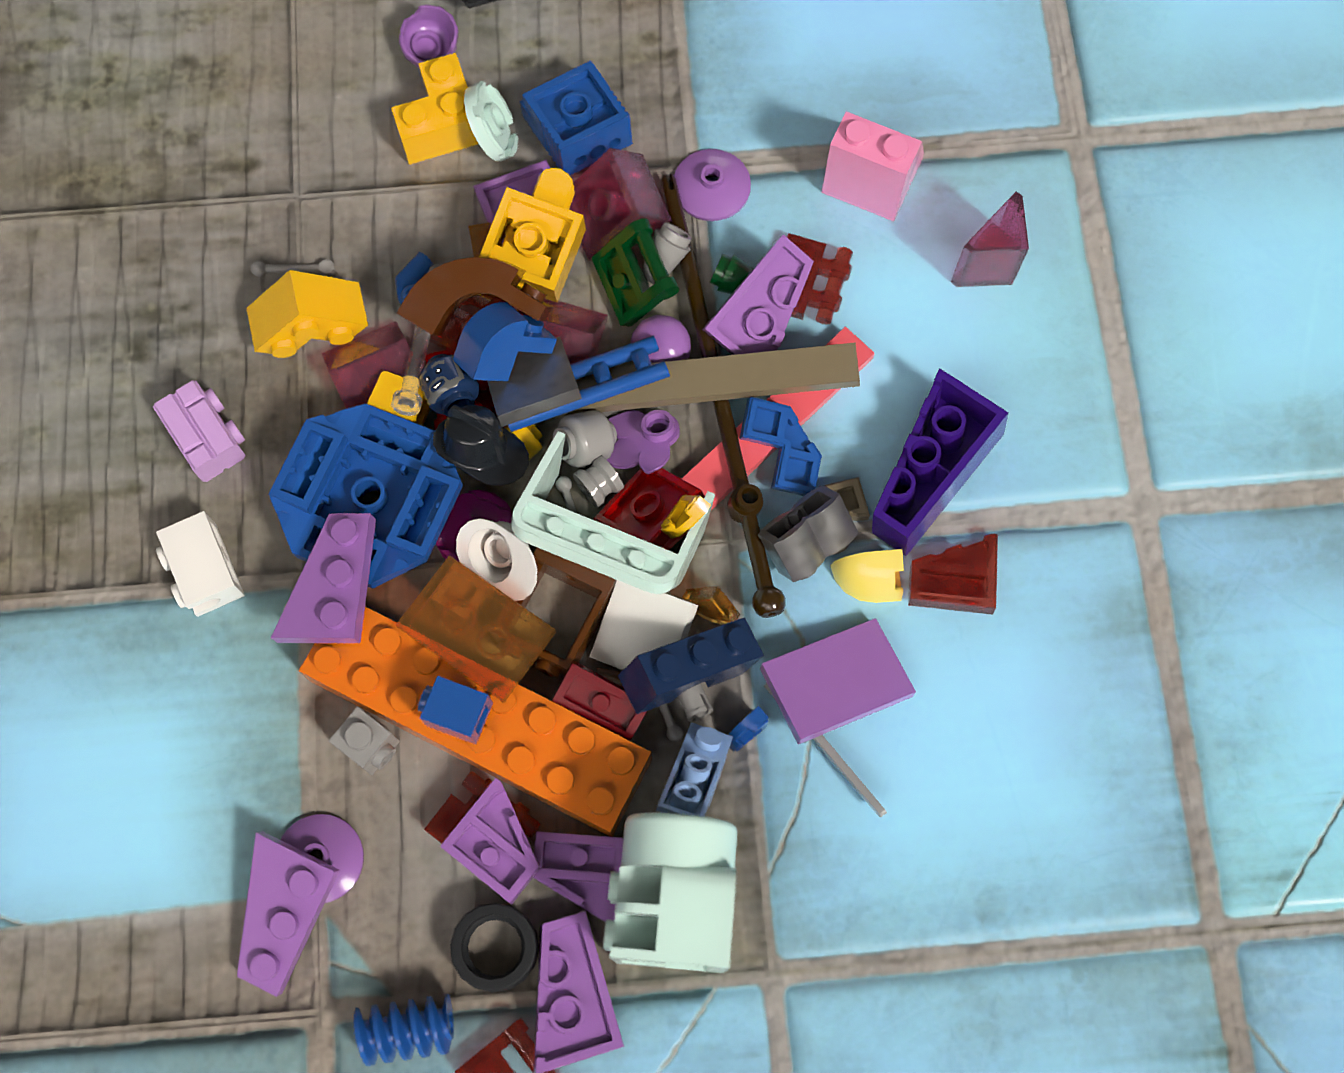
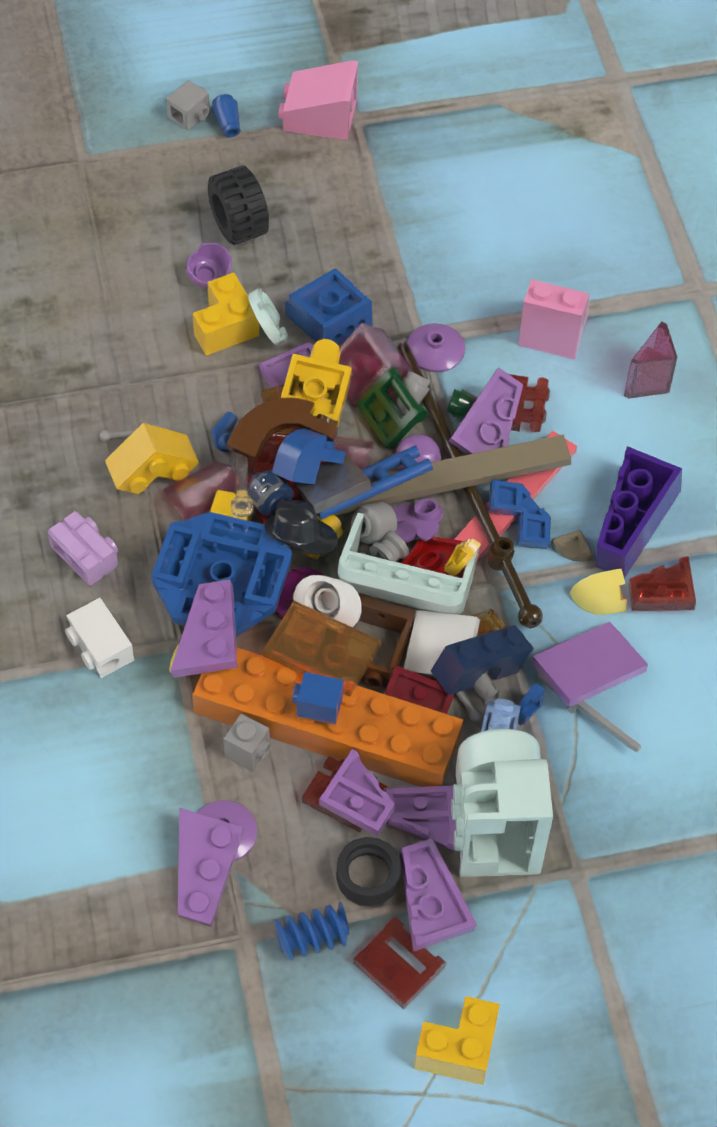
camera: 10 degrees left, 15 degrees down
(808, 533) = (551, 568): flat silver brick -> none

